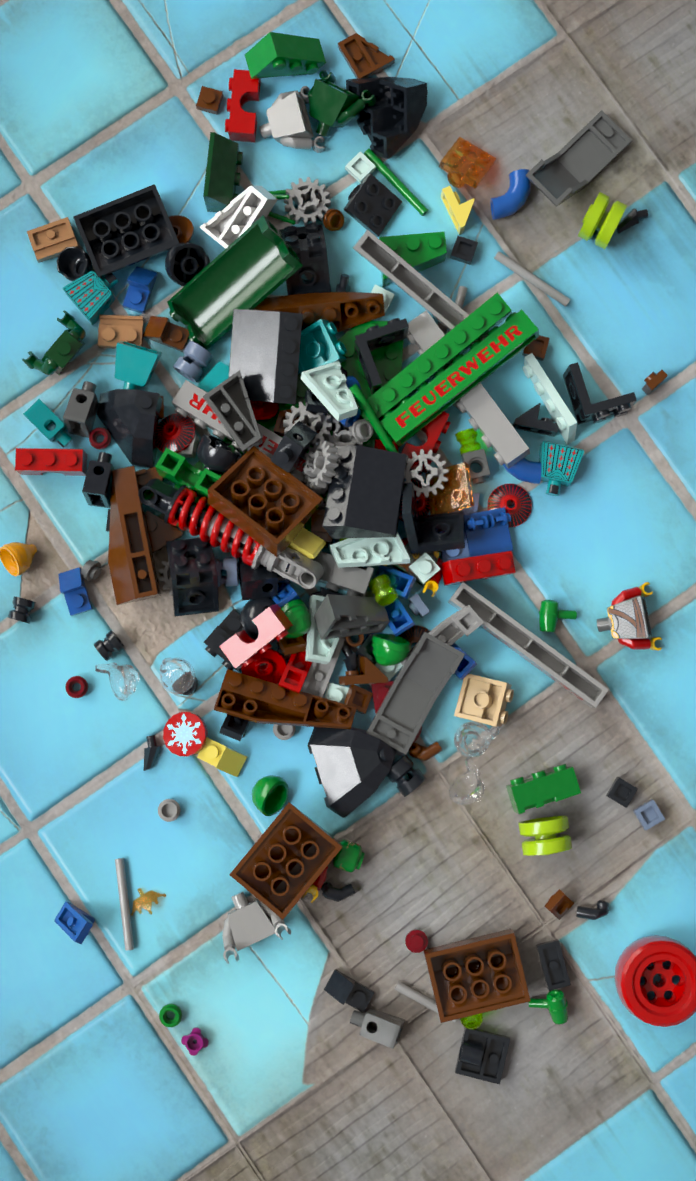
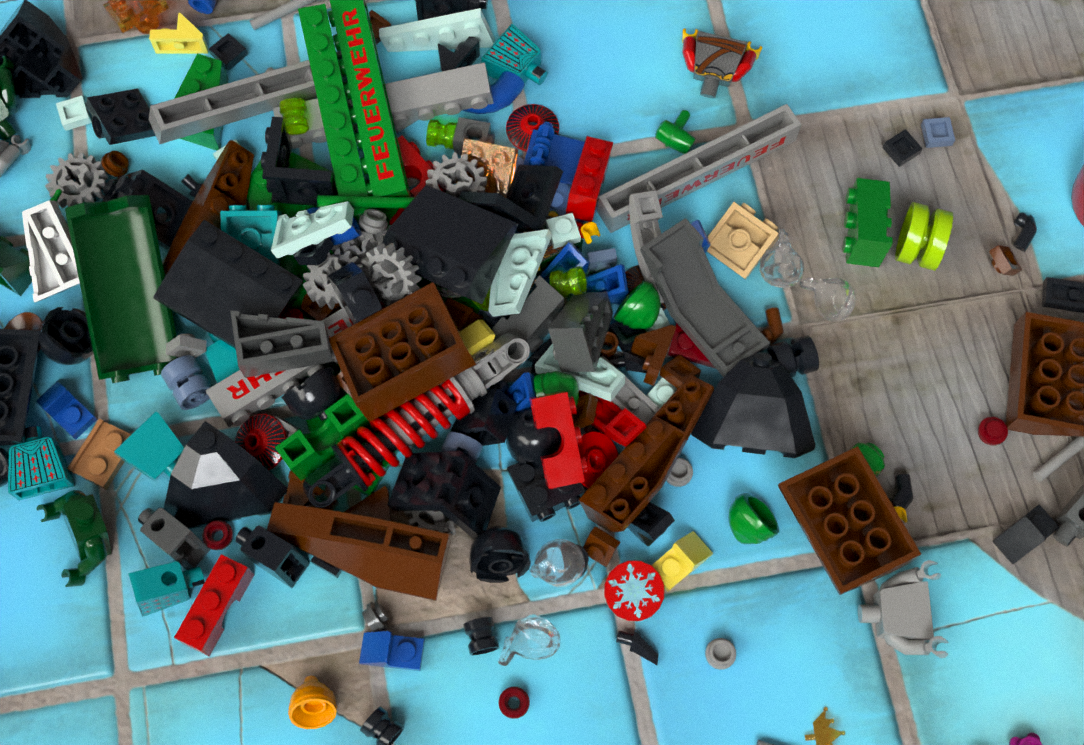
camera: 65 degrees left, 15 degrees down
(166, 333) = (133, 403): reddish brown slope -> none
(169, 631) = (499, 554): none -> black cylinder
(204, 698) = (601, 546): none -> reddish brown plate
(216, 347) = (186, 345): none -> light grey plate
(392, 178) = (116, 86): green piece -> none
(422, 330) = (294, 113): none -> clear neon green wheel

